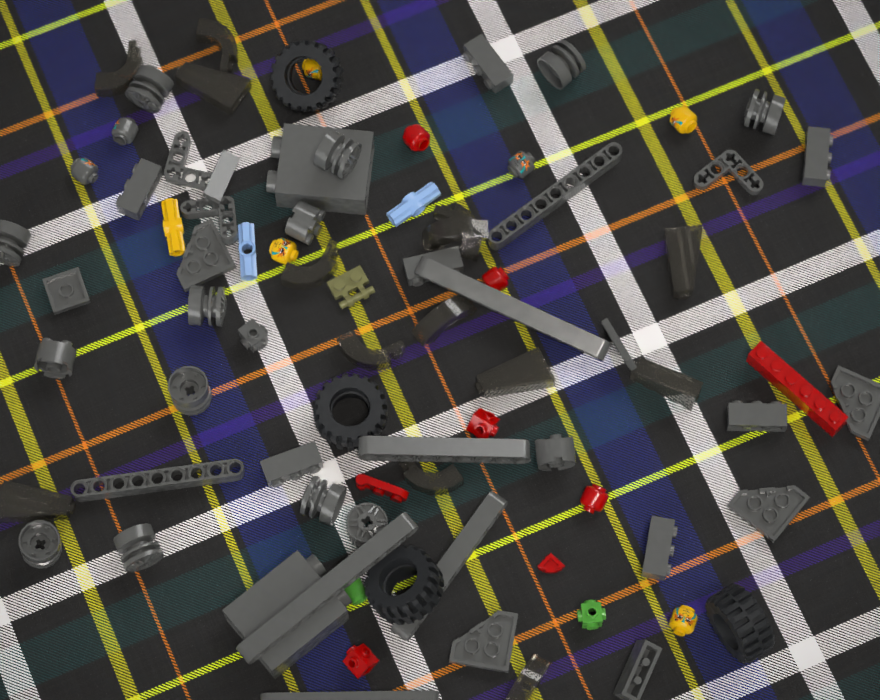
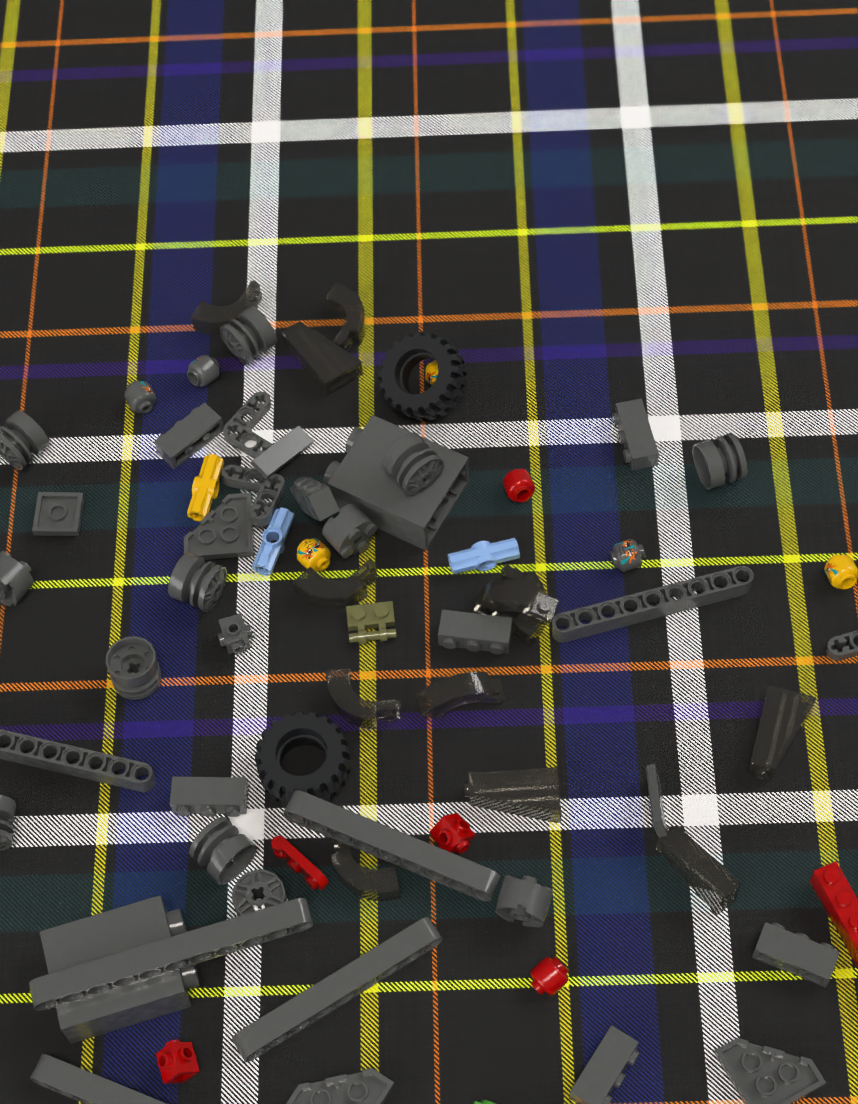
camera: 25 degrees right, 10 degrees down
(267, 207) = (314, 498): none -> dark grey brick
(356, 592) = (212, 974): bright green brick -> none
(418, 599) = (278, 1010): black tyre -> none
(496, 278) = (540, 673): red head -> none
(512, 308) = (547, 713): beam -> none
(551, 564) = (462, 1037): red tile -> none

